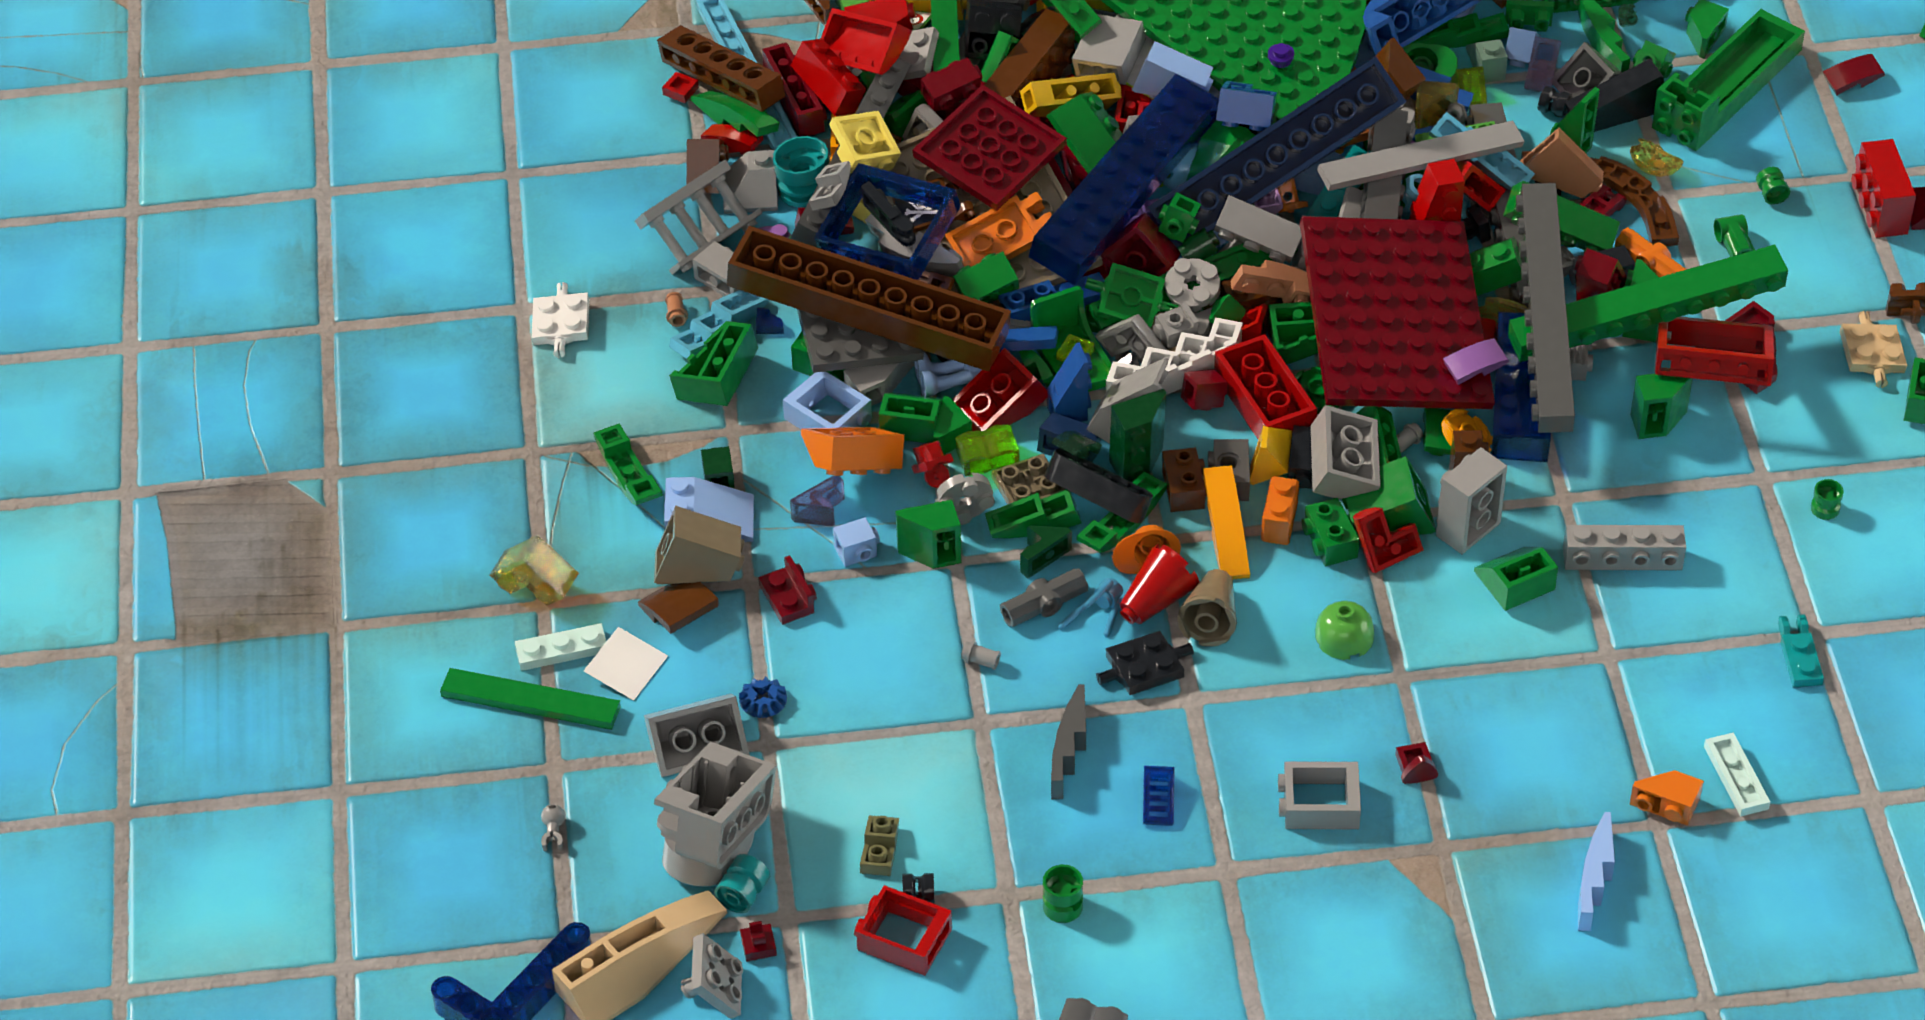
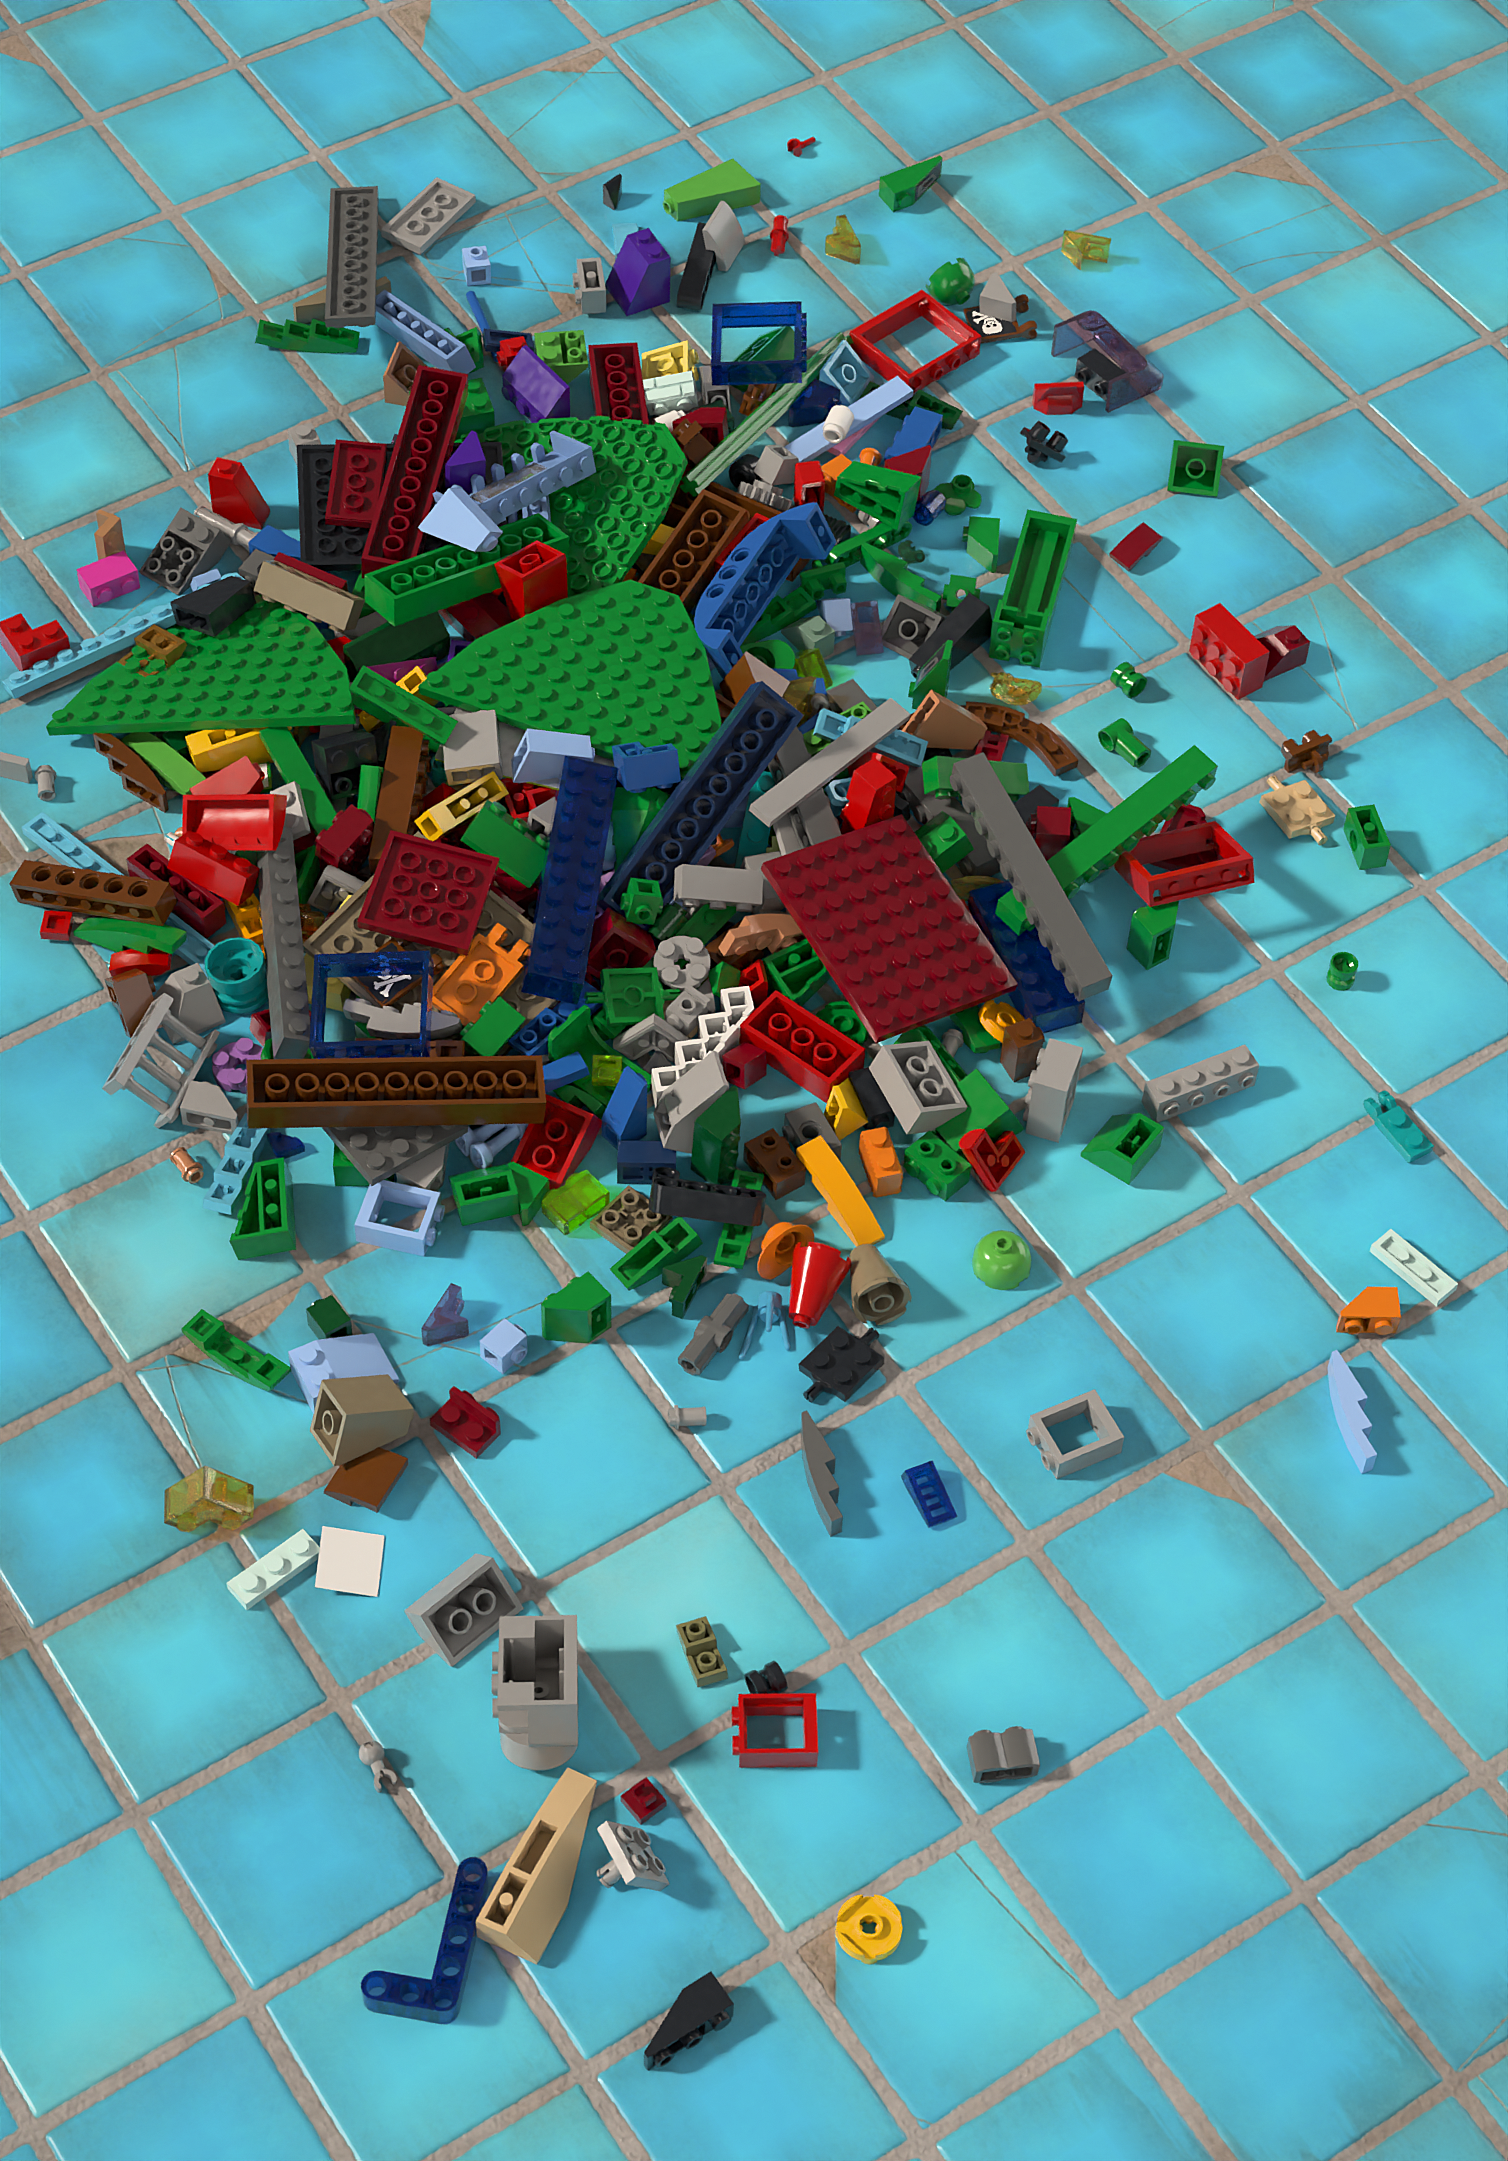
camera: 30 degrees left, 5 degrees up
(530, 698) = (275, 1637): green tile -> none
(560, 319) = (75, 1218): white plate -> none
(742, 883) = (599, 1747): teal wheel -> none
(765, 706) = (513, 1551): blue gear -> none
(831, 184) = (300, 987): light grey slope -> none
(854, 449) = (454, 1250): orange slope -> none
(865, 140) = (305, 929): light yellow plate -> none
(889, 216) = (377, 1000): black hinge -> none
(931, 461) = (533, 1236): red hips -> none
(976, 491) = (588, 1257): light grey plate -> none
(1062, 893) = (903, 1631): green wheel -> none
(1076, 444) = (669, 1168): clear green slope -> none
(1281, 55) = (647, 702): dark purple plate -> none
(1415, 763) = (1136, 1367): dark red tile -> none
(1474, 359) = (987, 950): medium lavender slope -> none
(1553, 101) = (900, 663): black wheel -> none
(1655, 256) = (1067, 785): orange piece -> none

